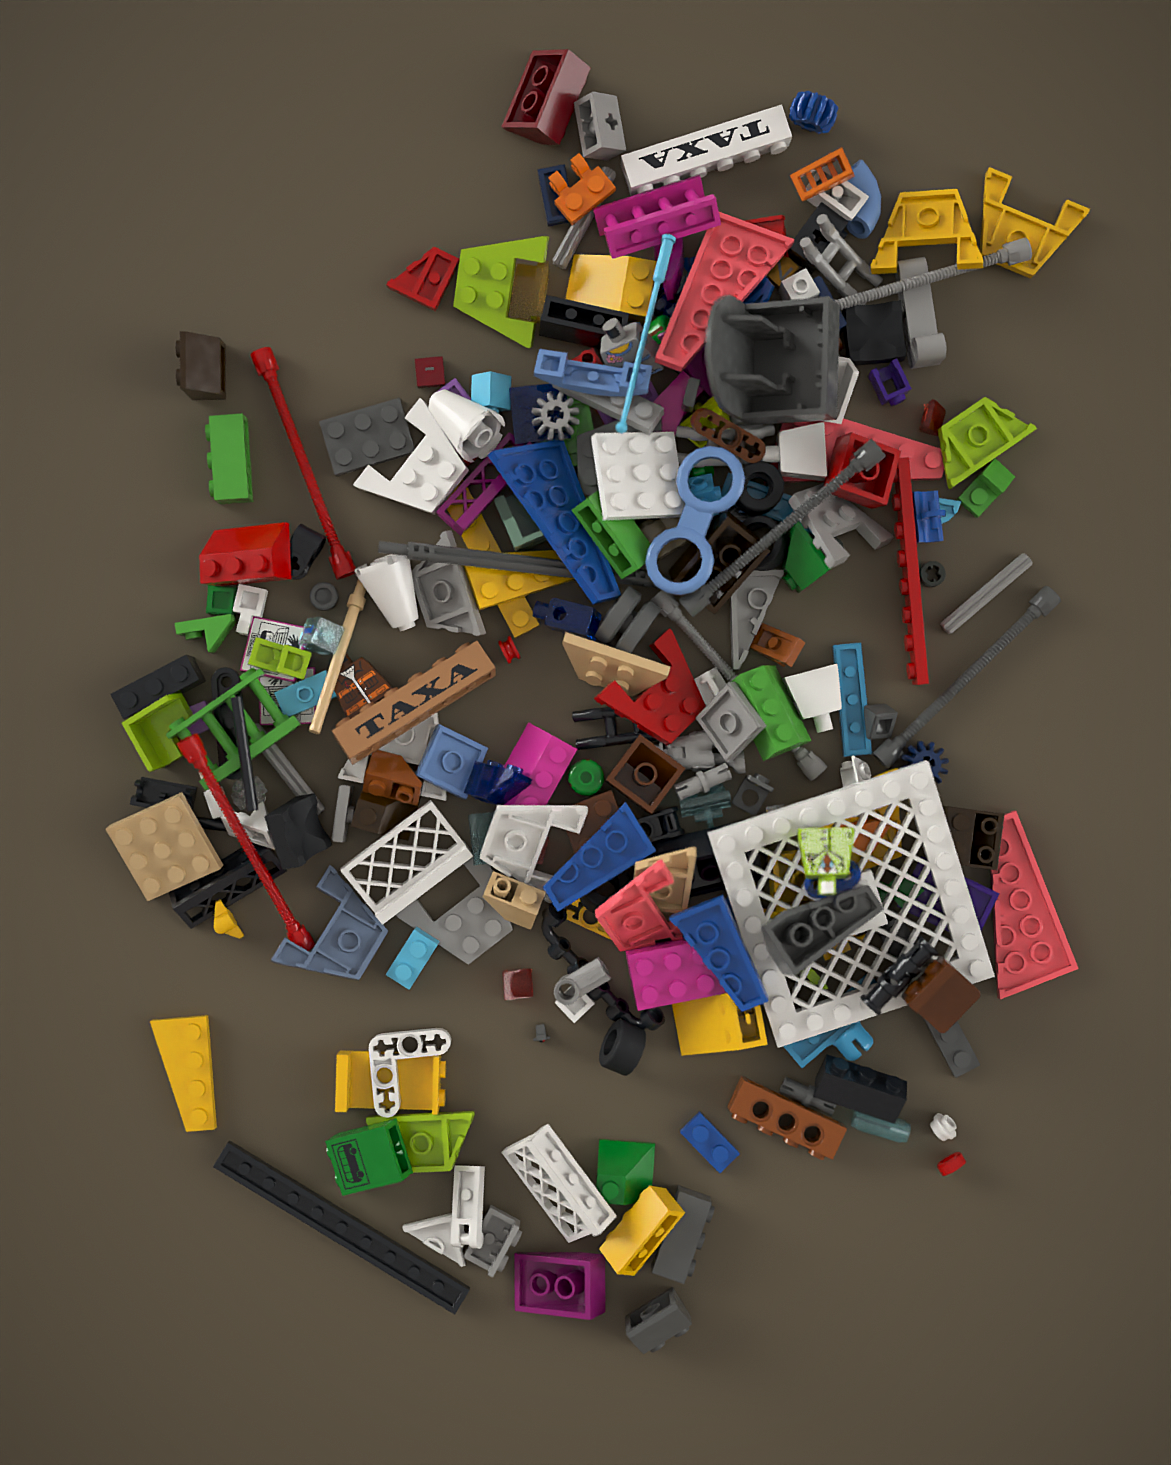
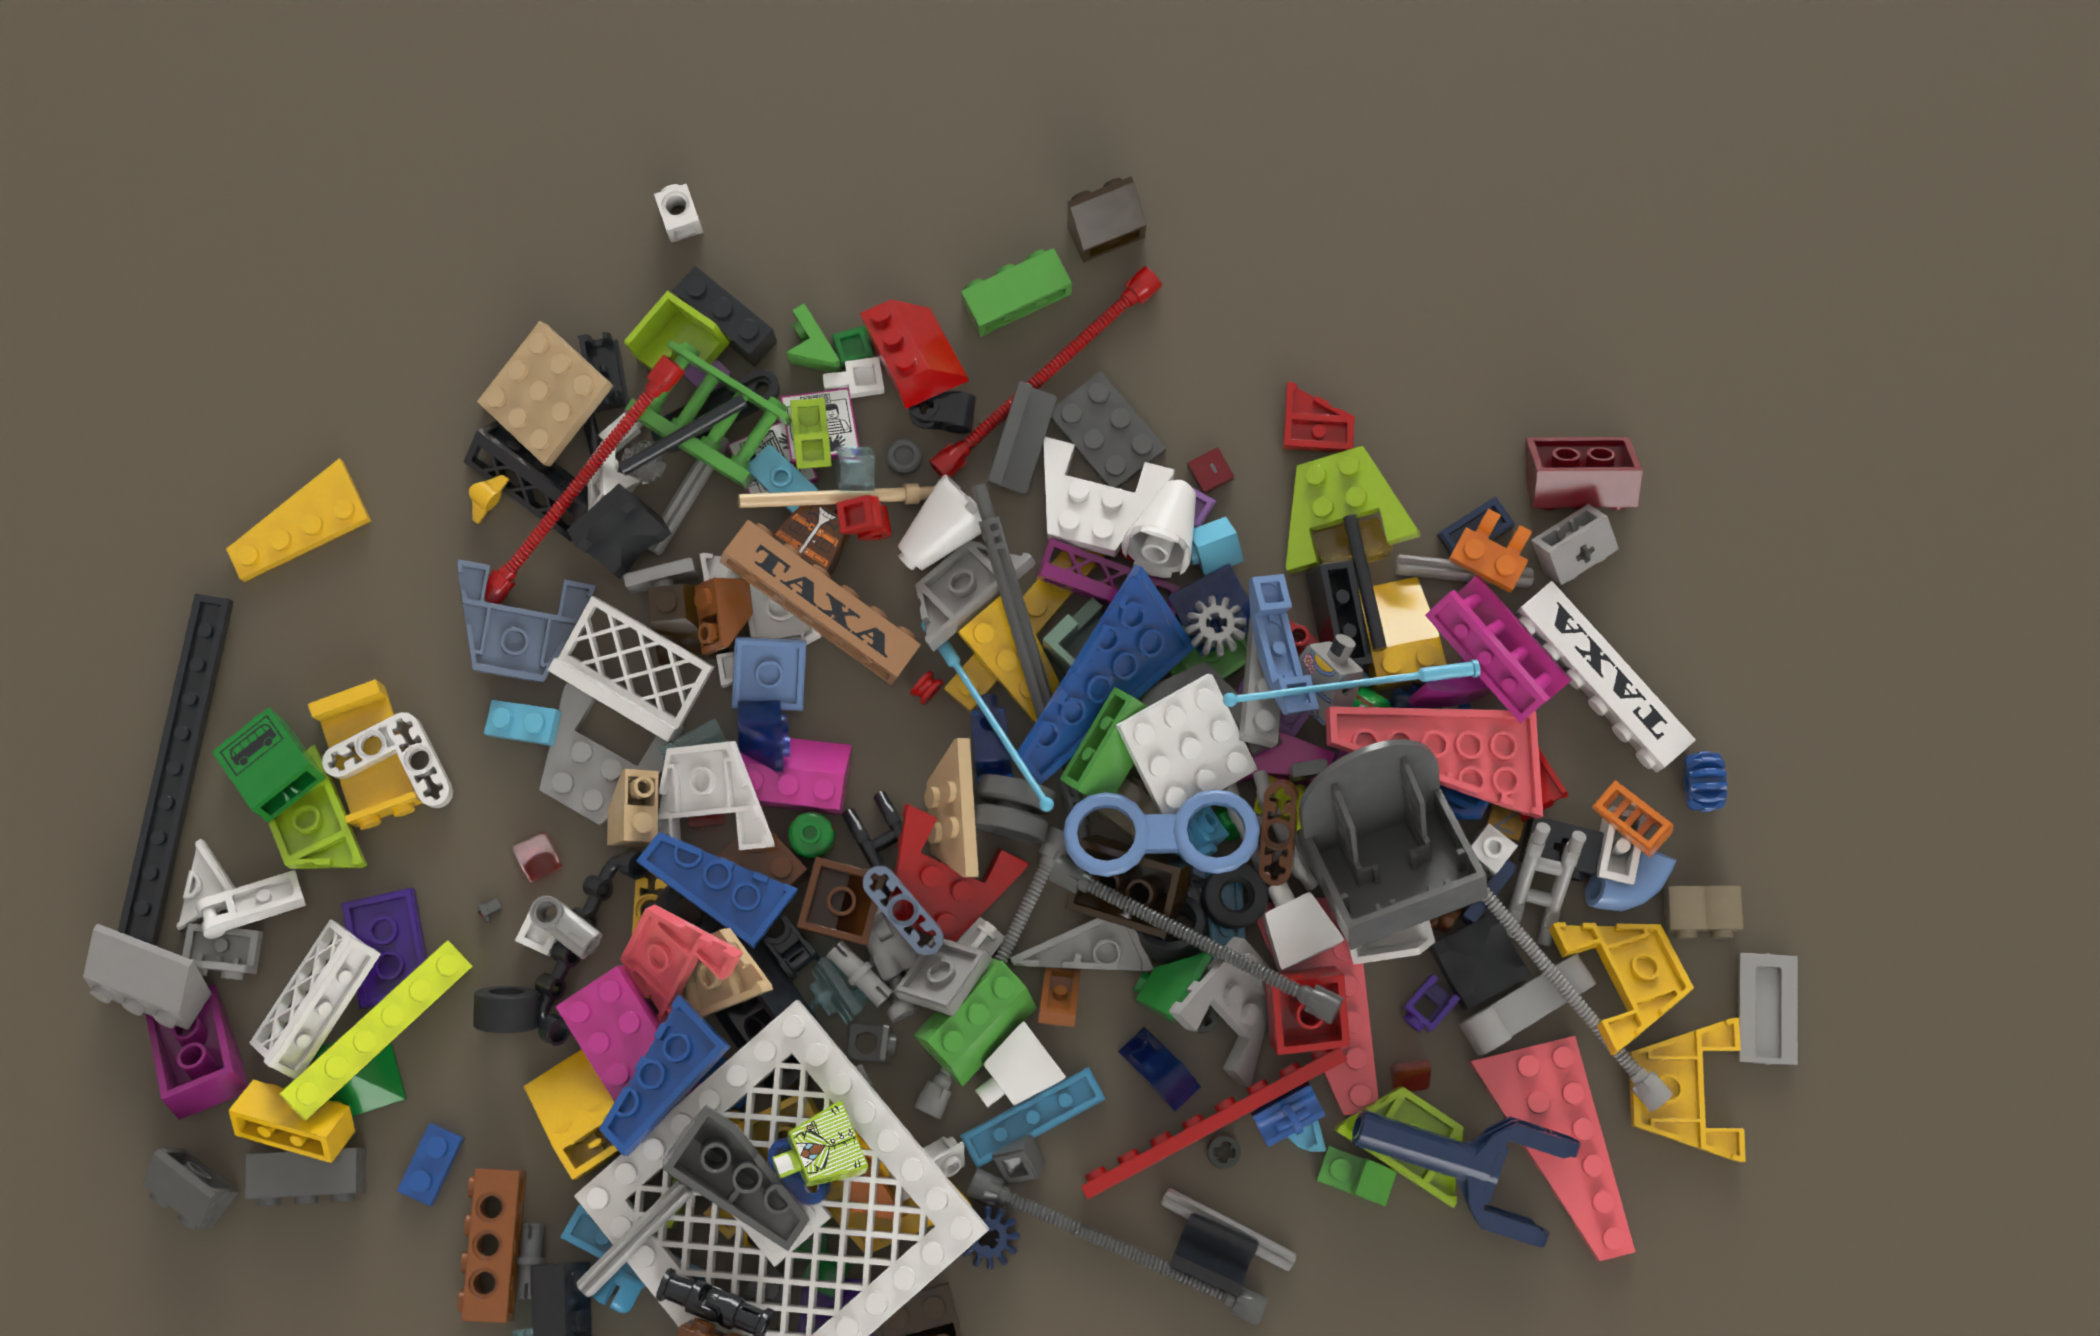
camera: 70 degrees right, 10 degrees down
(70, 691) = (681, 225): none -> white brick
(347, 502) = (1022, 438): none -> dark grey panel
(363, 644) = (864, 517): none -> red leg
(494, 1303) = (144, 978): none -> light grey slope
(496, 622) = (952, 659): none -> medium azure piece
(527, 1109) = (392, 928): none -> dark purple tile
(567, 293) = (1365, 583): none -> black bar
(601, 1147) = (375, 1030): none -> neon yellow plate
(689, 718) = (927, 925): none -> sand blue beam
(829, 1016) = (634, 1238): none -> light grey axle
(855, 594) = (1160, 1069): none -> clear blue slope
(902, 157) = (1703, 910): none -> dark tan brick
(989, 143) = (1768, 1008): none -> light grey piece
(1000, 610) = (1214, 1253): none -> black panel
(1005, 330) = (1551, 1090): none -> coral wing
(1016, 400) = (1472, 1164): none -> dark blue piece

